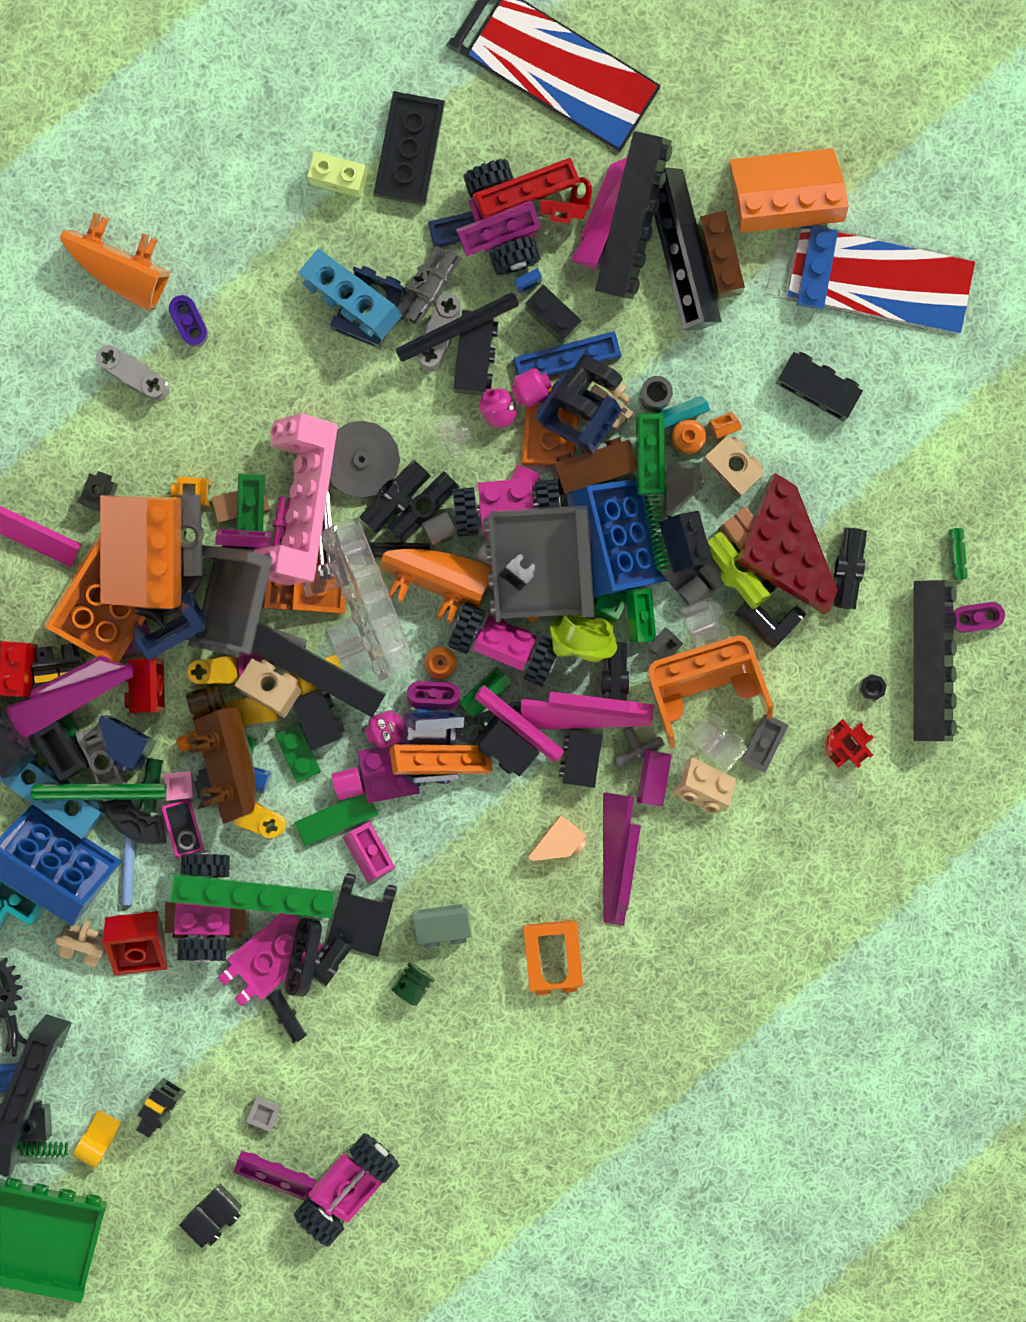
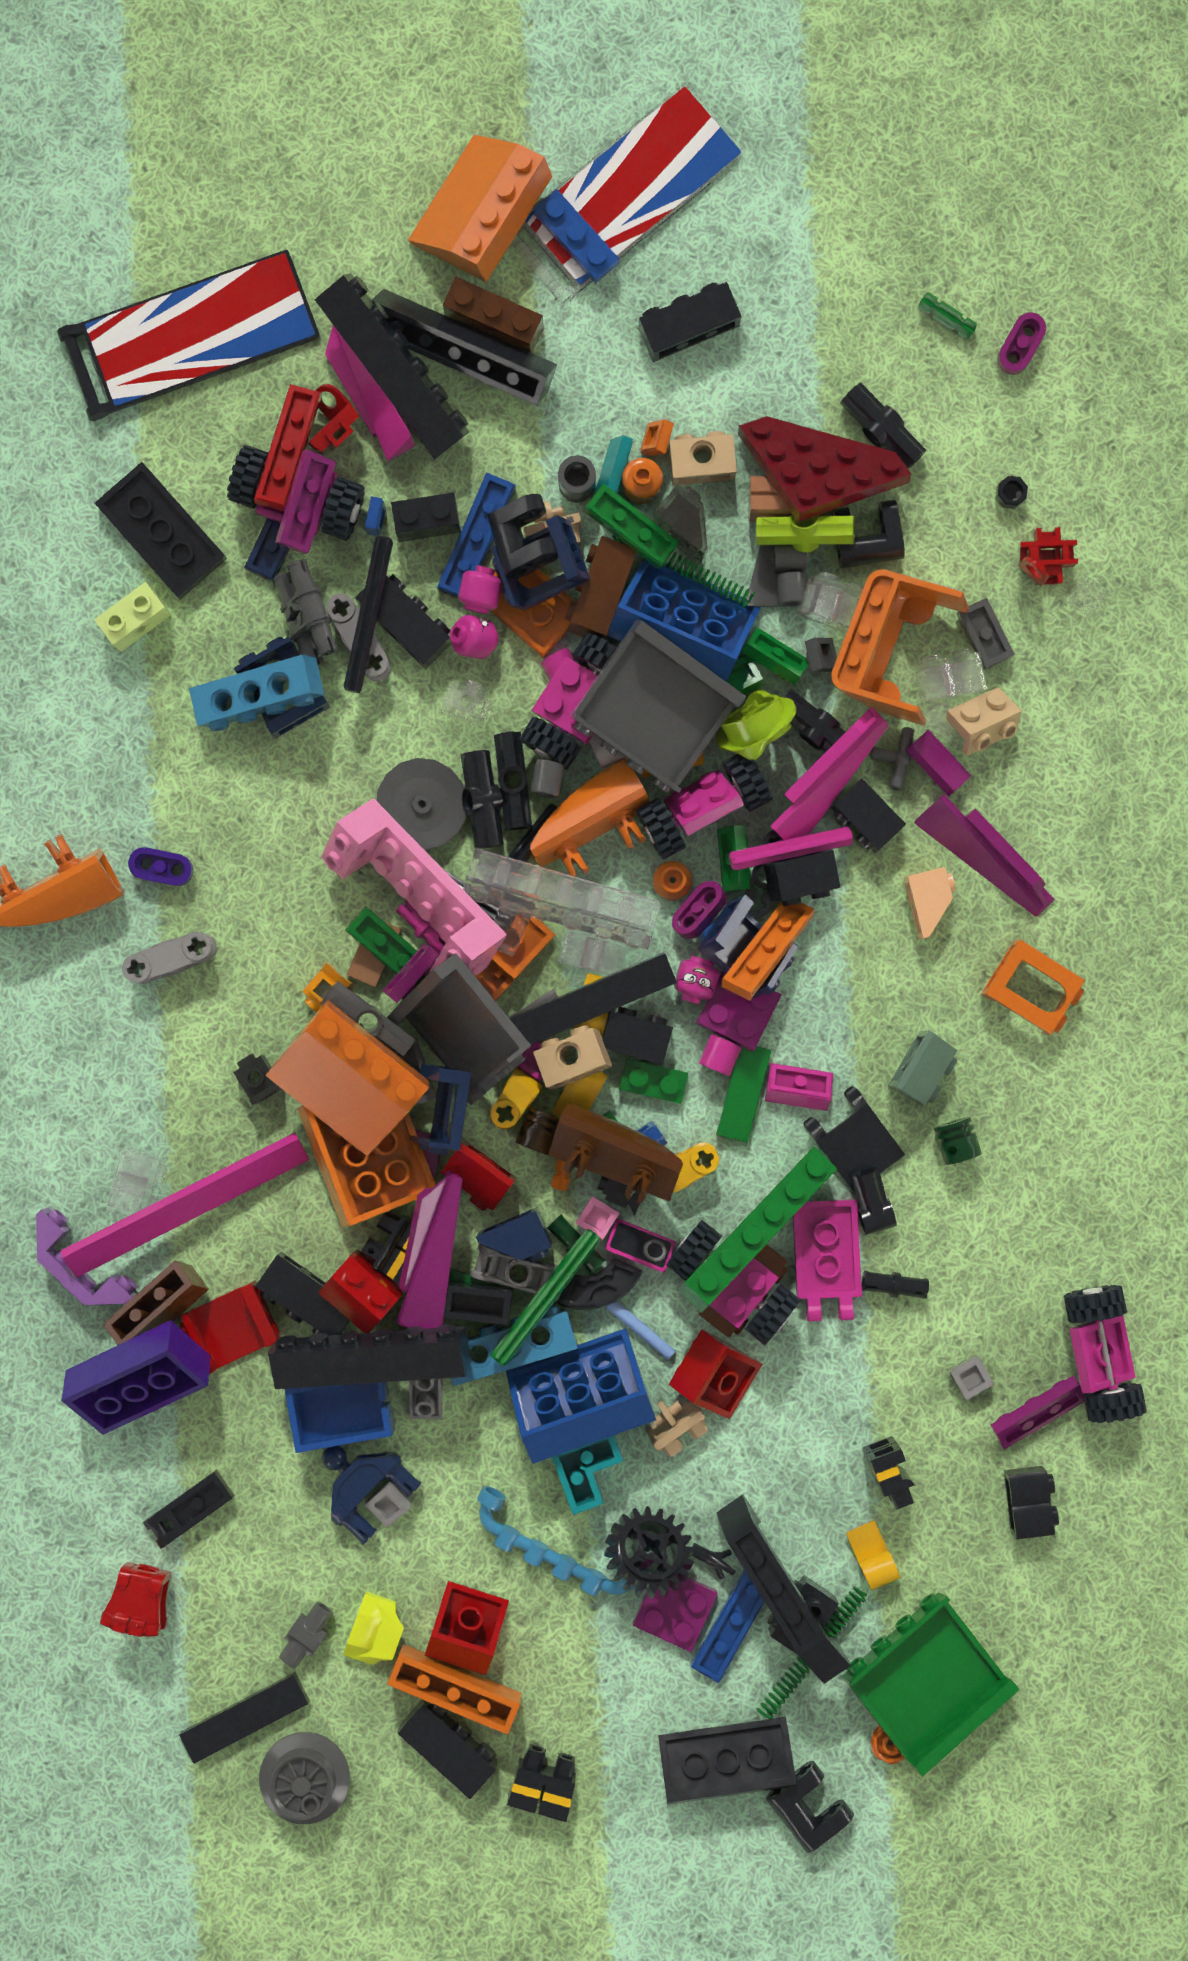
camera: 50 degrees left, 0 degrees up
(155, 614) = (417, 1113): black bar -> none
(298, 982) = (845, 1202): black beam -> none
(516, 575) = (651, 737): tile -> none
(685, 541) = (740, 557): black brick -> none
(934, 661) = (1032, 414): black brick -> none

